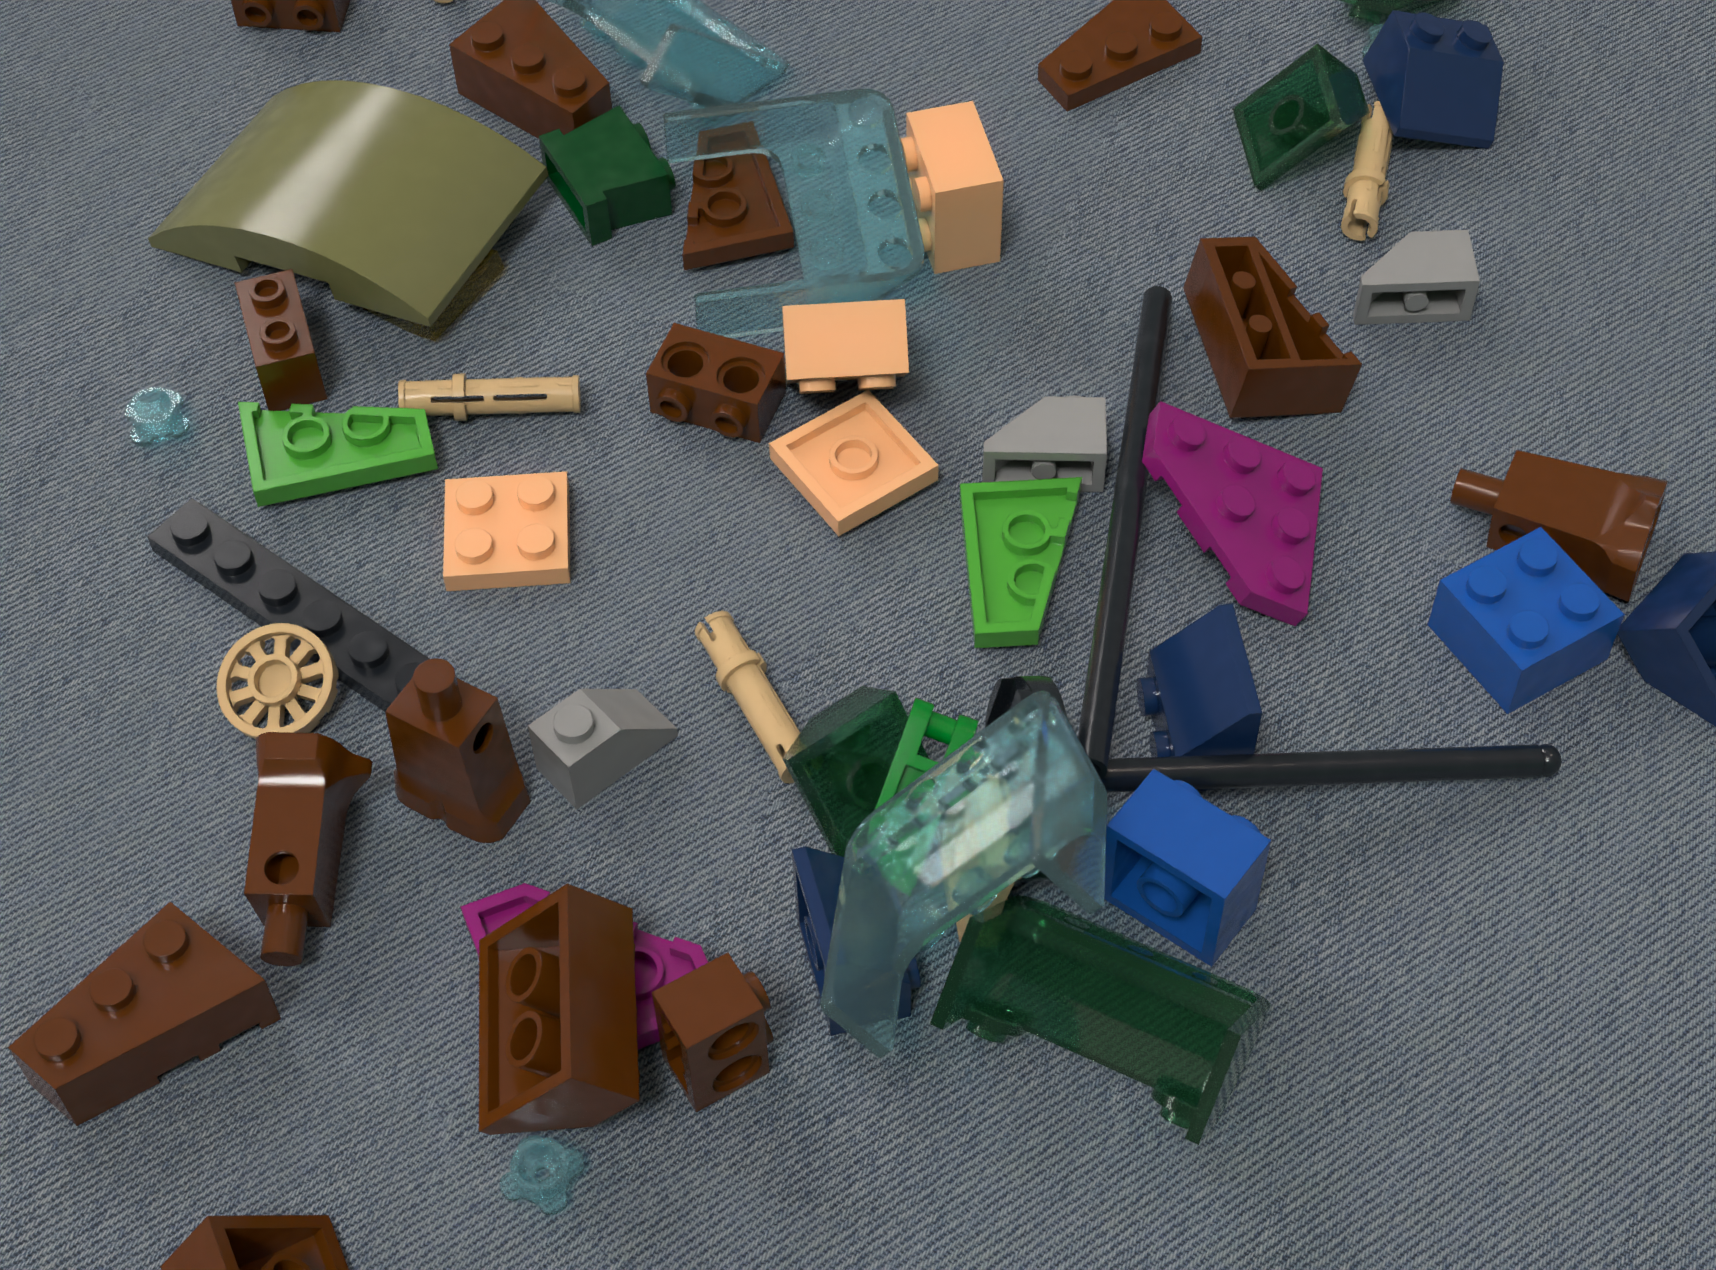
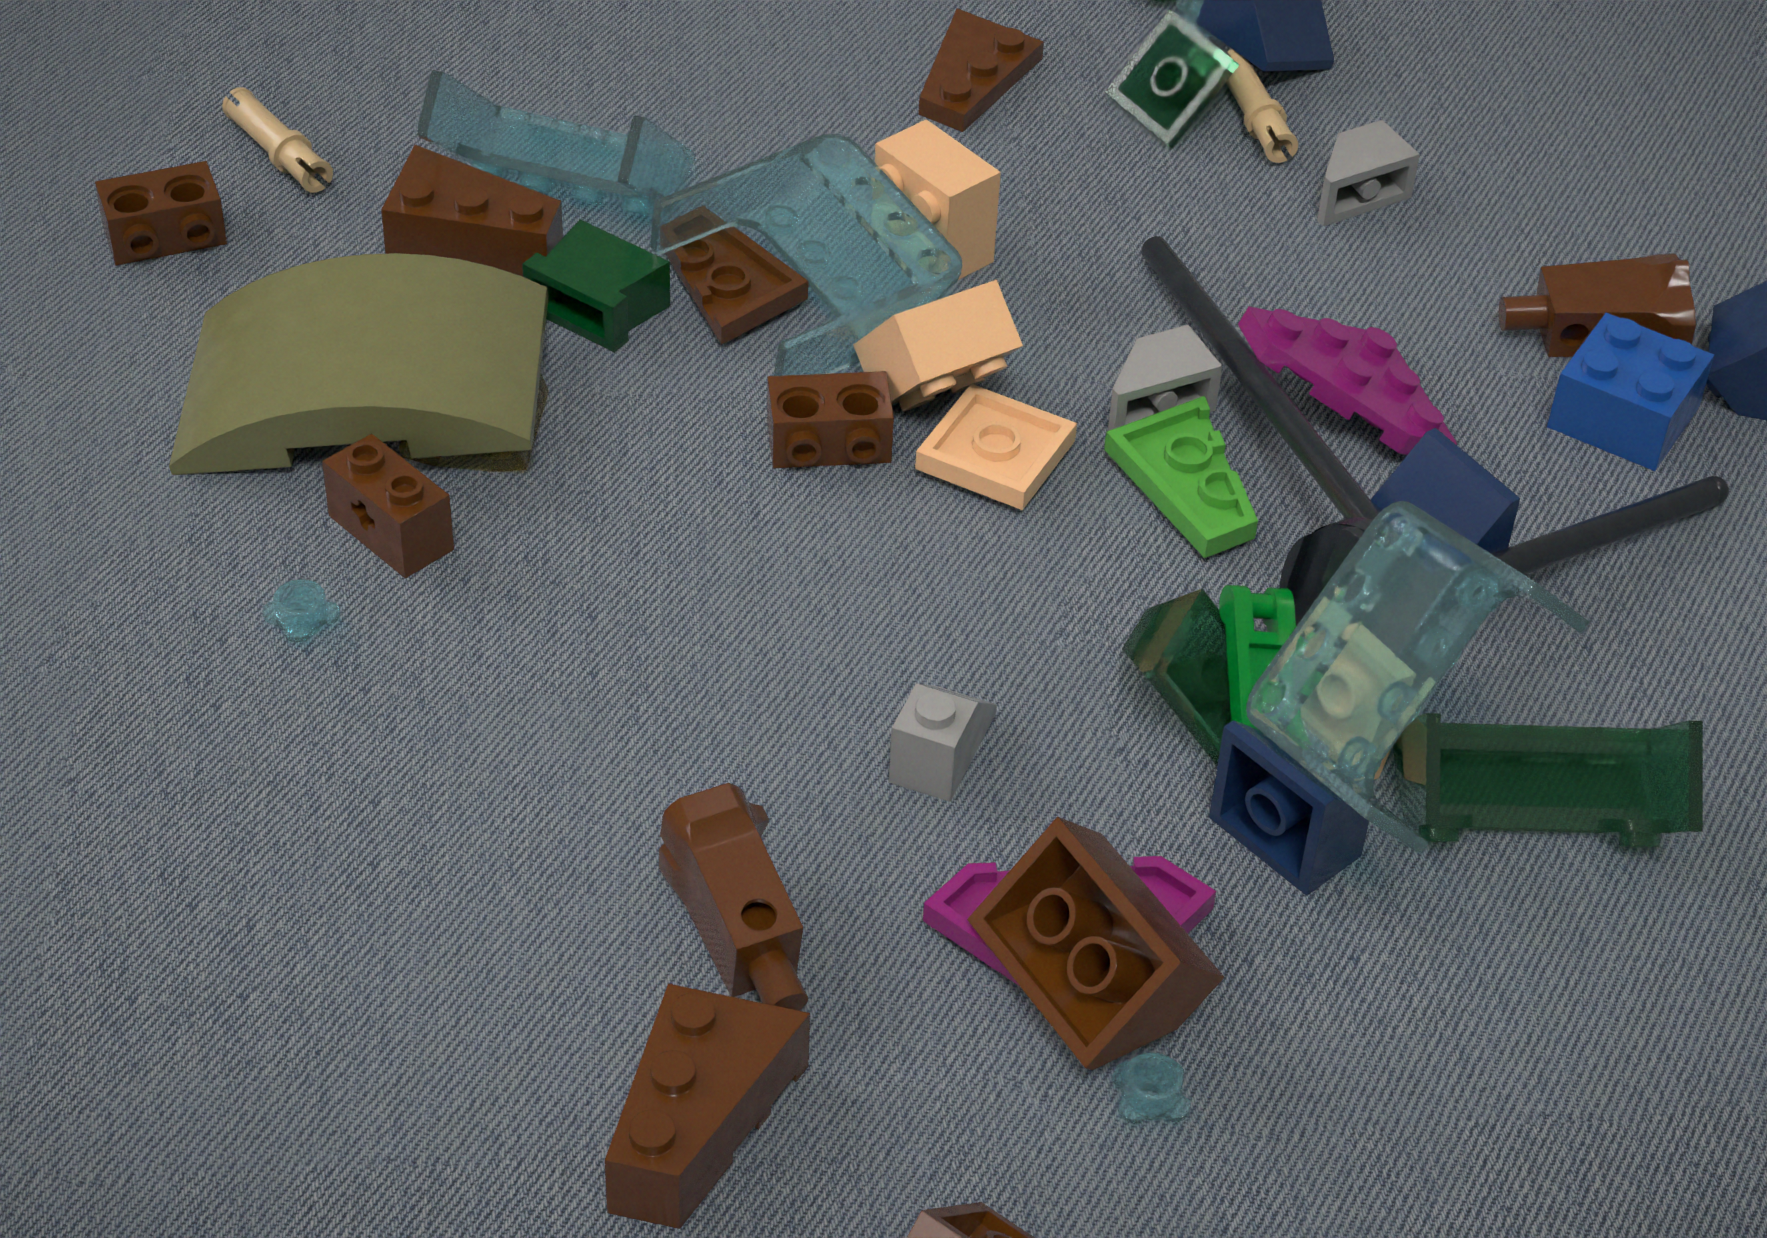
camera: 30 degrees left, 10 degrees down
(276, 592) = (577, 728): black plate -> none
(277, 680) = (603, 787): tan wheel -> none
(318, 452) = (494, 590): bright green wing -> none
(455, 754) = (838, 773): reddish brown piece -> none
(506, 531) = (719, 600): light nougat plate -> none
(561, 393) = (559, 513): tan pin -> none
(713, 1030) = (1239, 903): reddish brown brick -> none
(743, 675) = (1028, 640): tan pin -> none
(1184, 866) = (1526, 661): blue brick -> none
(1260, 336) = (1269, 246): reddish brown wedge -> none

